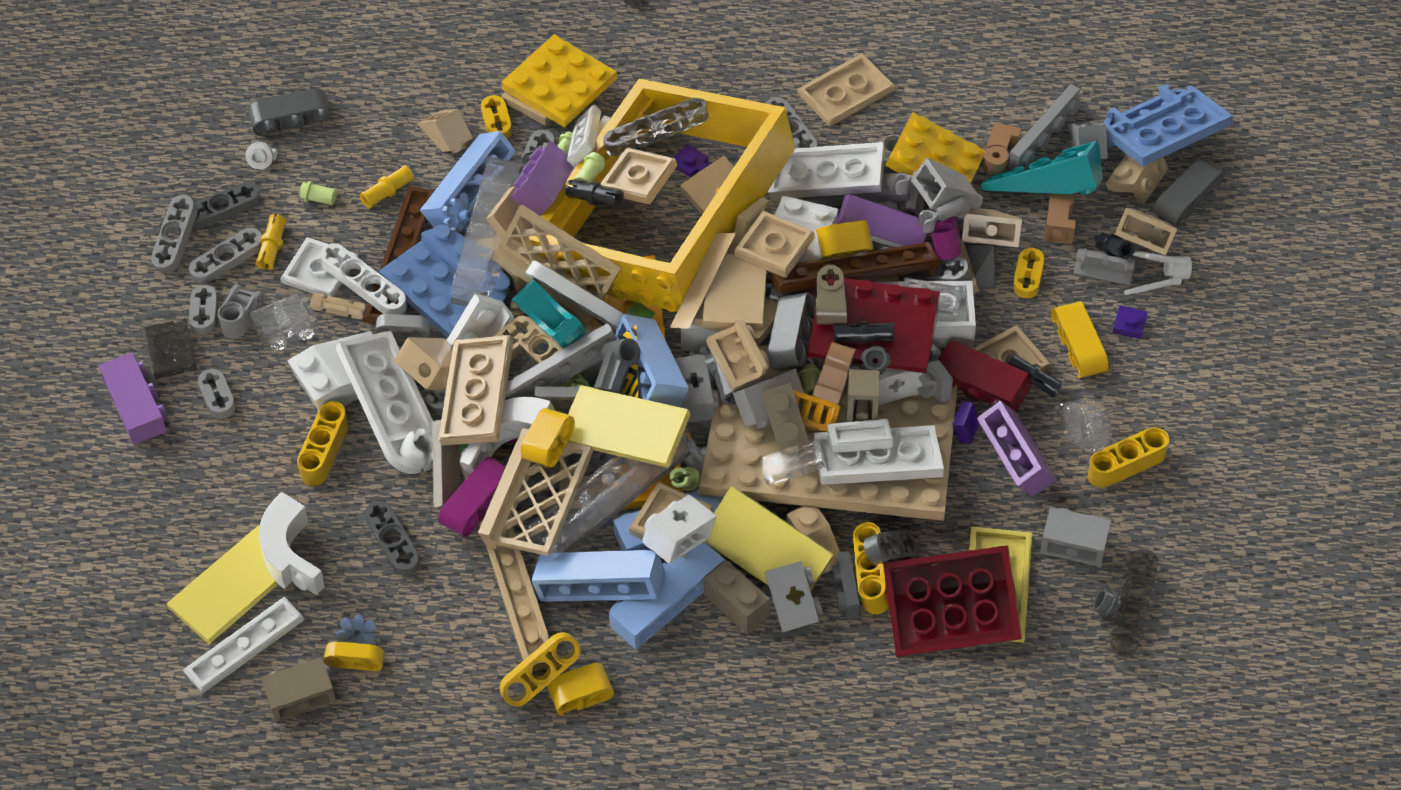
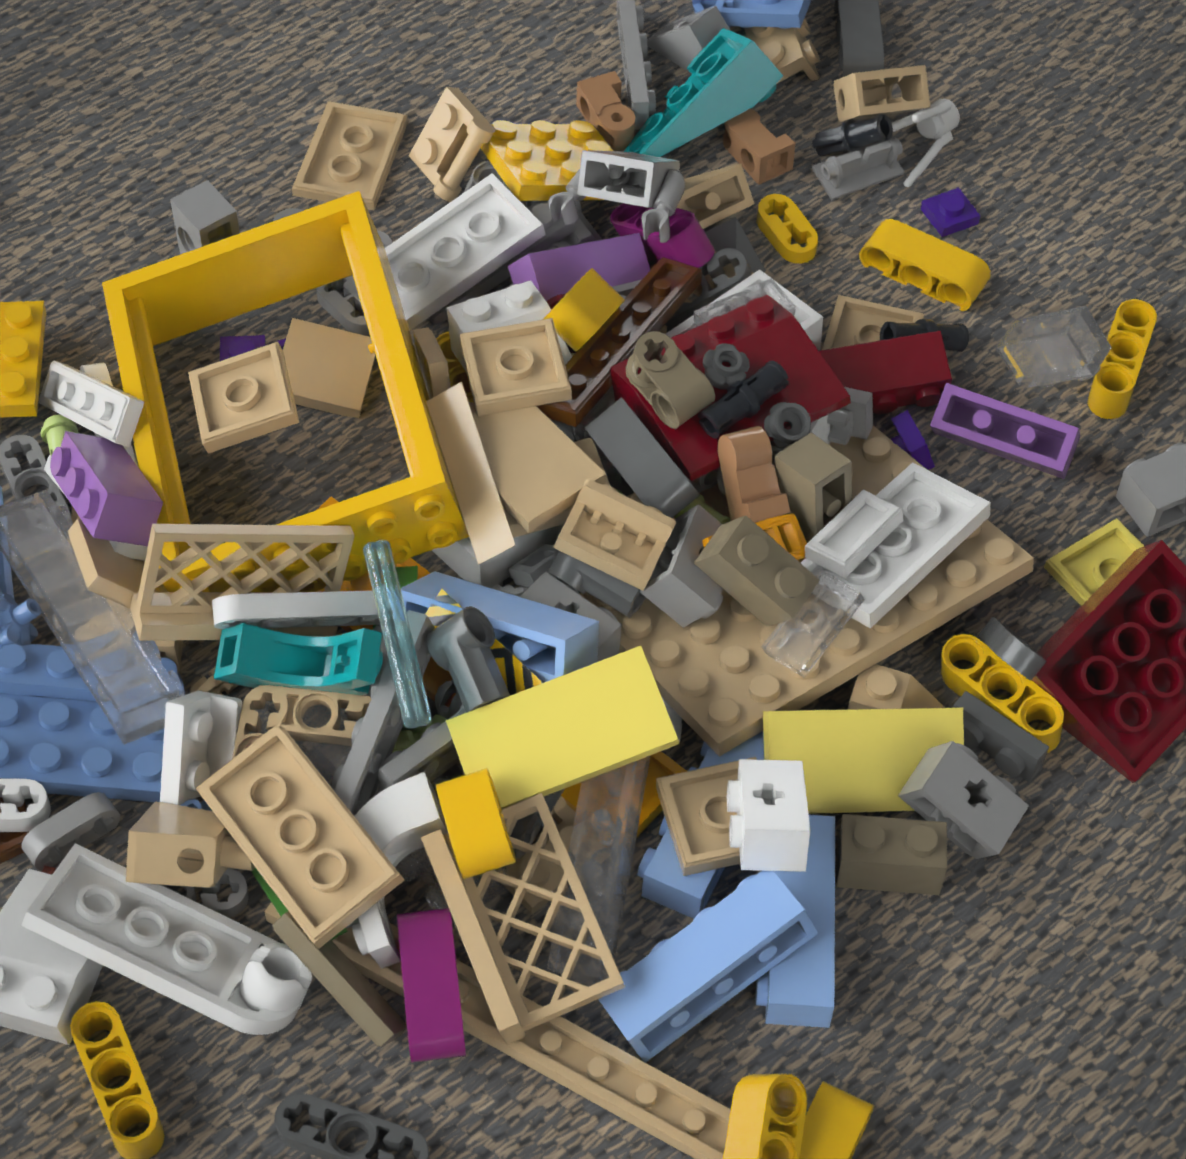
camera: 45 degrees left, 0 degrees up
(589, 329) = (397, 634): none -> clear light blue axle
(592, 166) = (163, 423): yellowish green pin -> none
(594, 193) = (206, 457): black pin -> none
(617, 139) = (228, 278): clear smoke beam -> none
(686, 478) = (694, 751): yellowish green pin -> none
(724, 76) = (202, 217): none -> light grey brick
(874, 316) = (719, 375): none -> dark grey plate
(892, 112) = (450, 142): none -> tan plate

